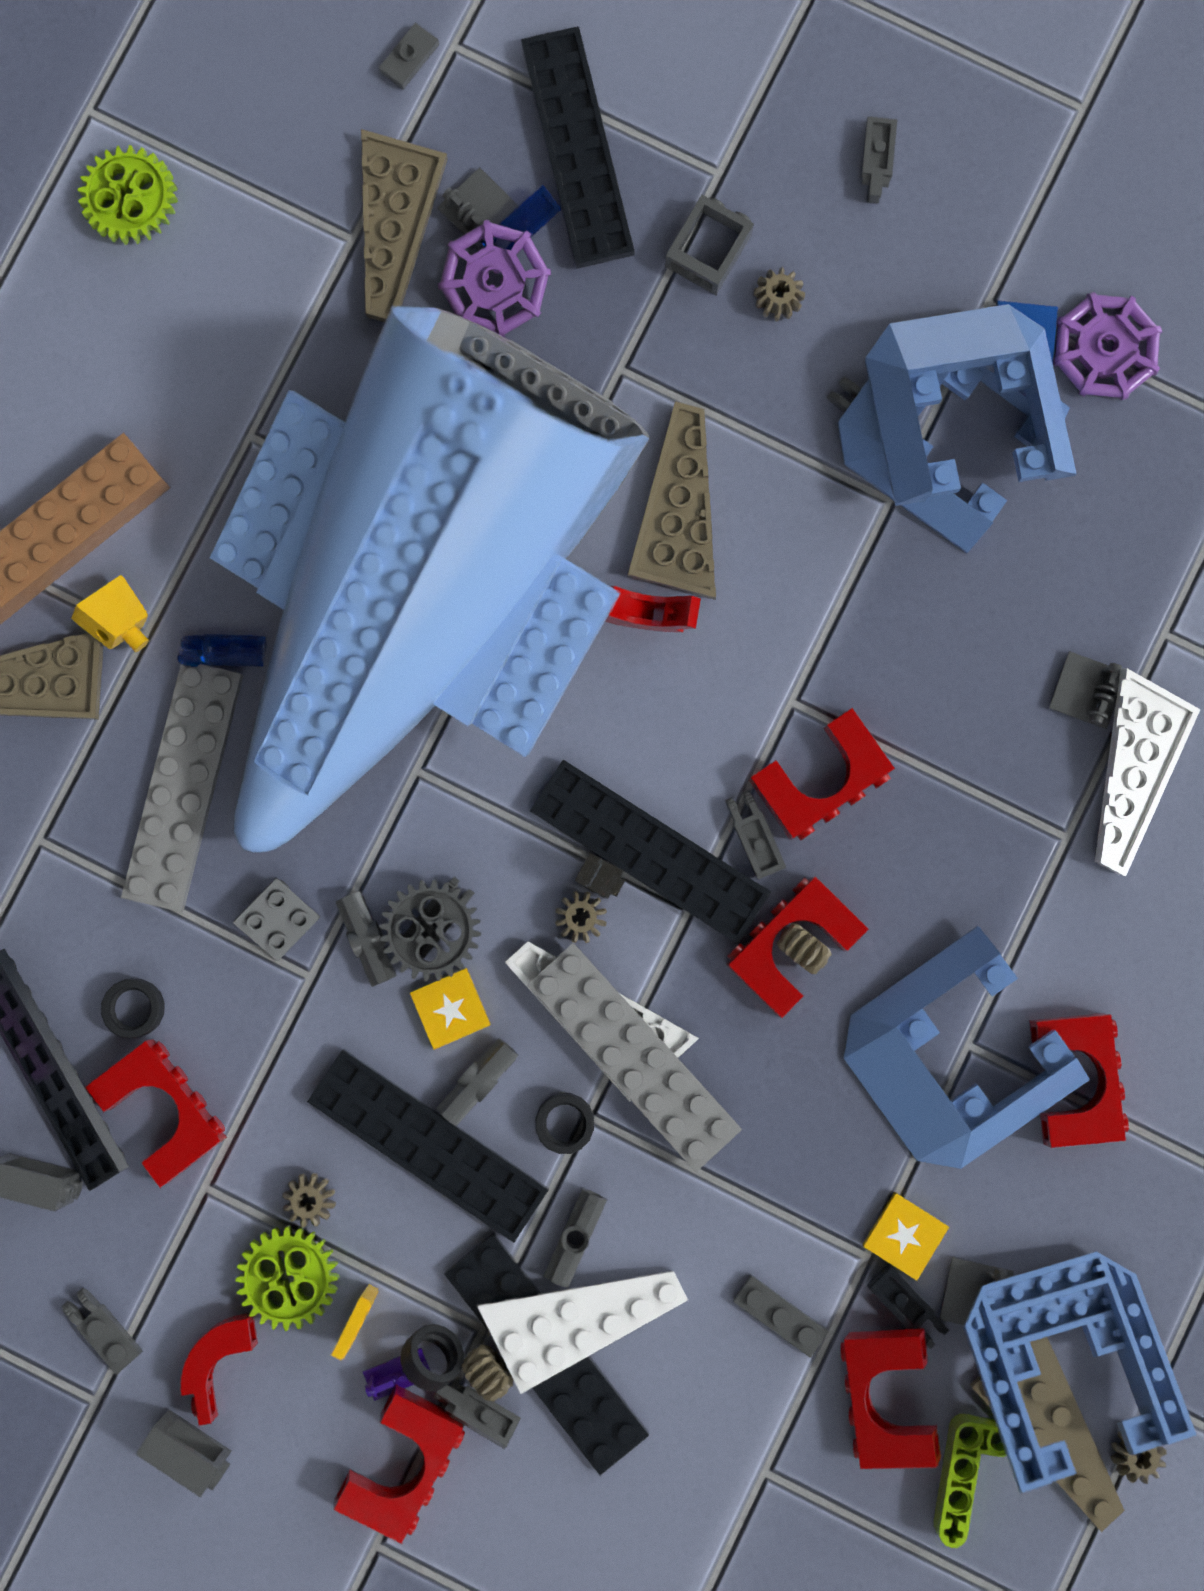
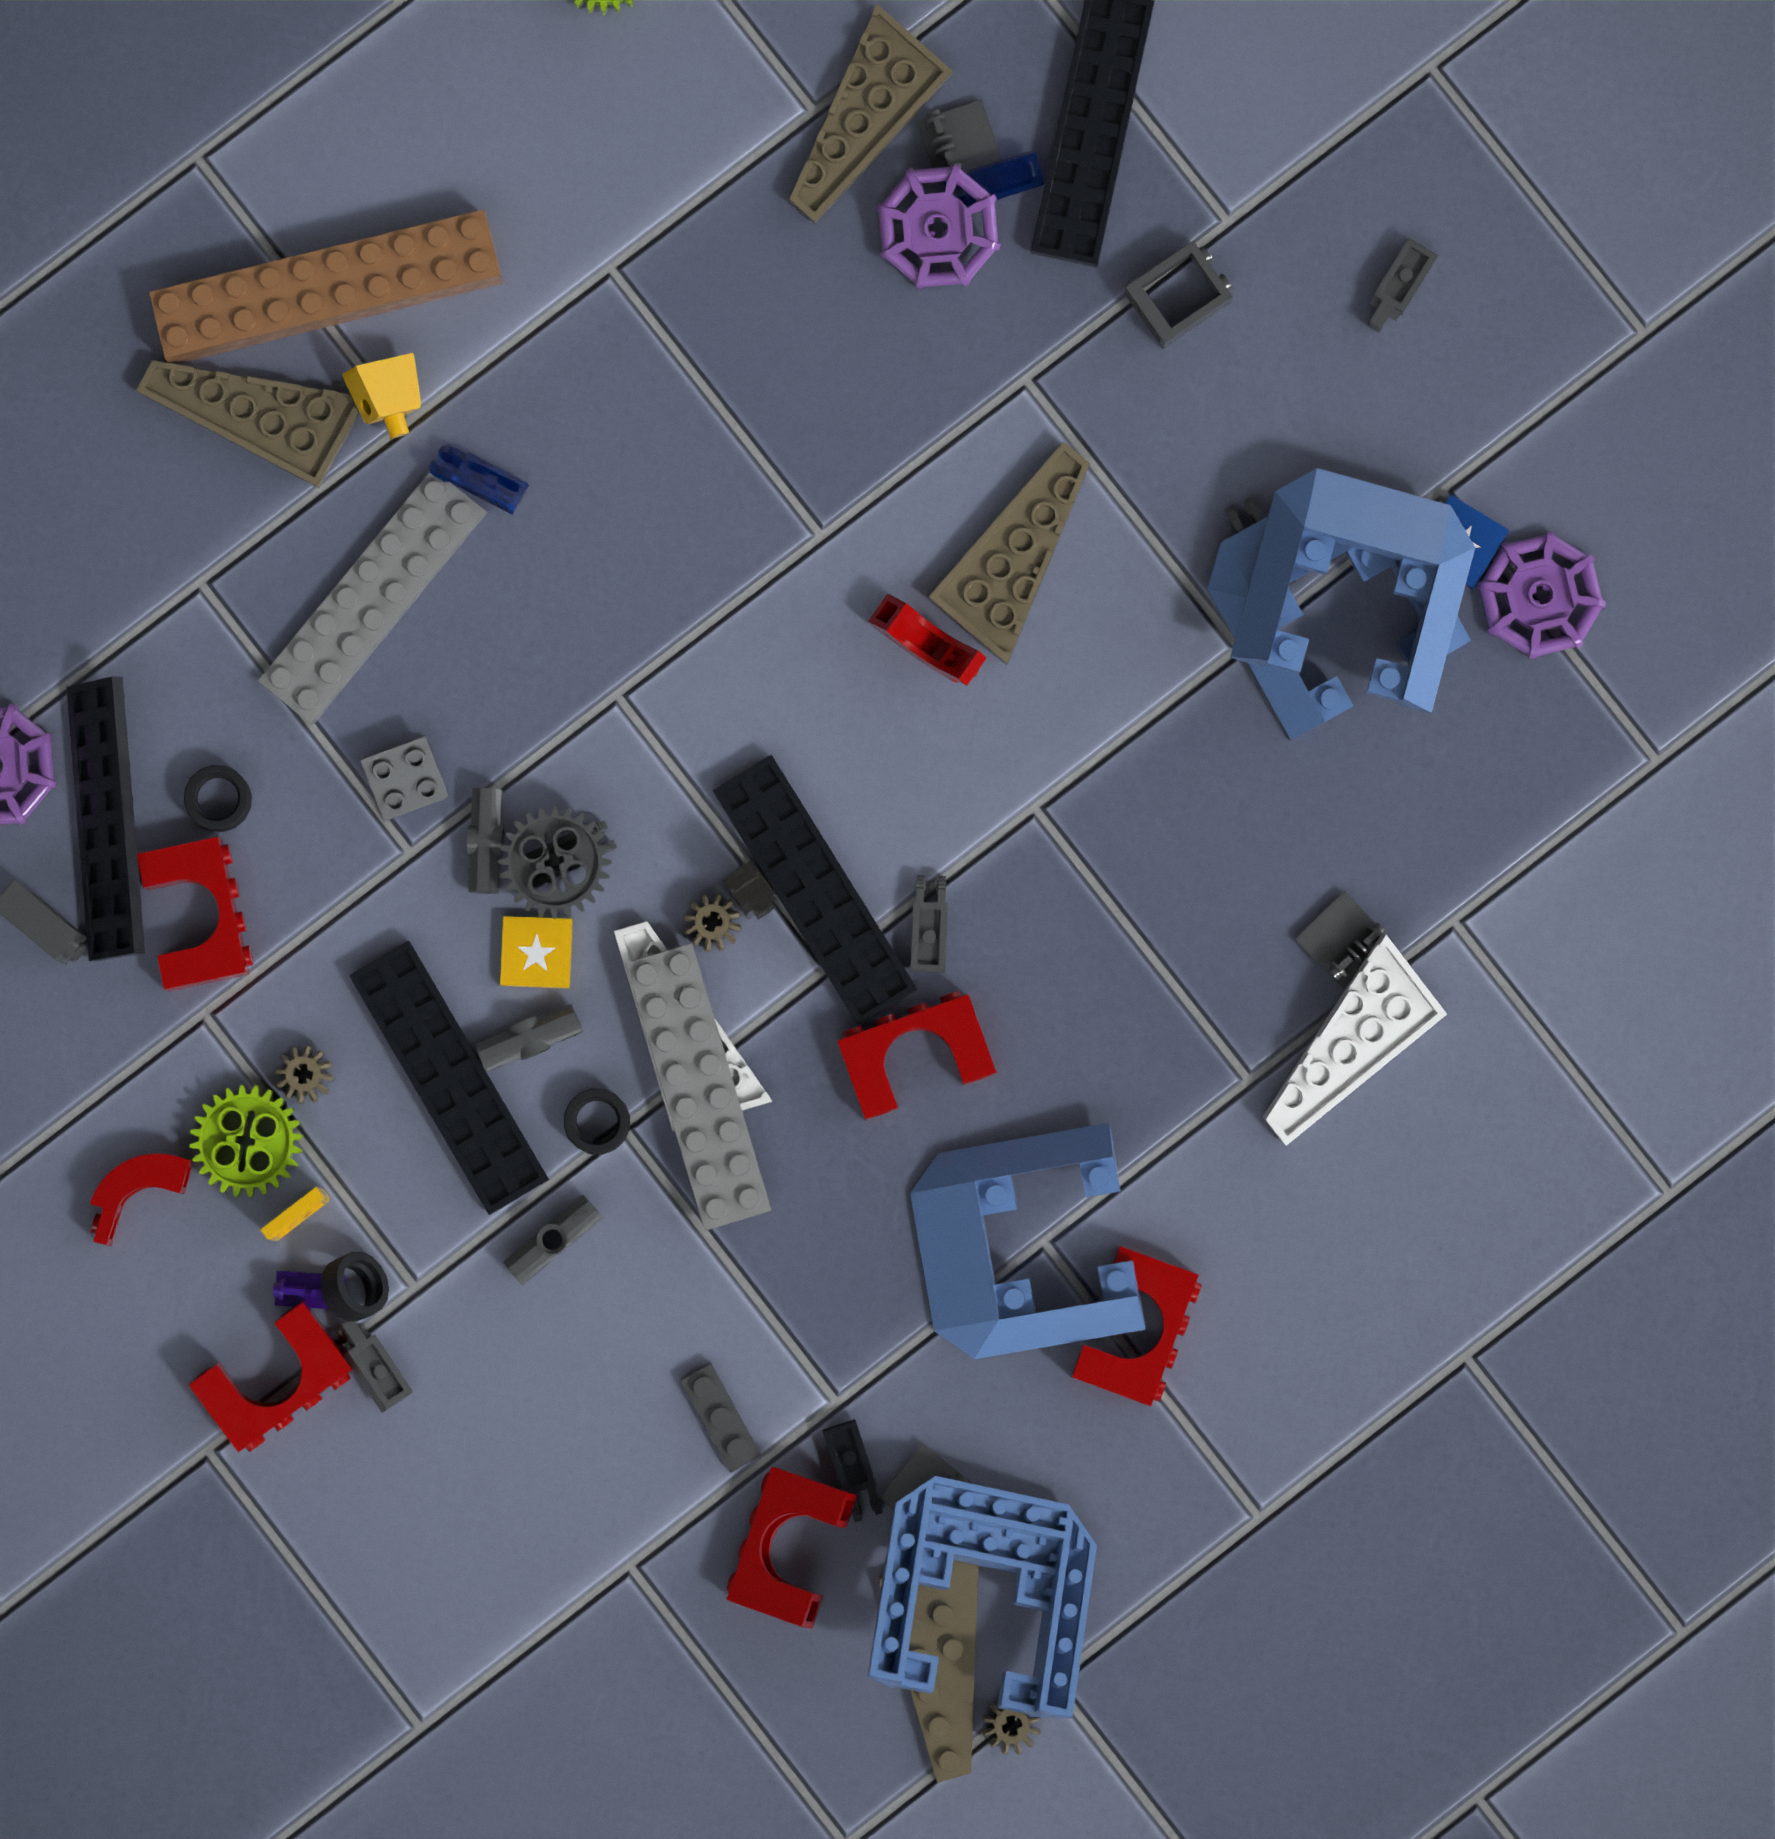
camera: 25 degrees right, 0 degrees up
(103, 1332) = (37, 1109): dark grey hinge -> none
(185, 1453) = (67, 1262): dark grey window -> none
(419, 558) = (724, 485): light blue piece -> none
(487, 1373) = (402, 1328): dark tan gear -> none
(564, 1326) = (492, 1319): white wing -> none
(578, 1395) = (468, 1342): black plate -> none
(790, 291) = (1220, 369): dark tan gear -> none
(804, 948) = (922, 1061): dark tan gear -> none
(864, 764) = (986, 924): red arch -> none
(905, 1236) = (885, 1399): yellow tile -> none
(965, 1479) = (822, 1664): lime beam -> none

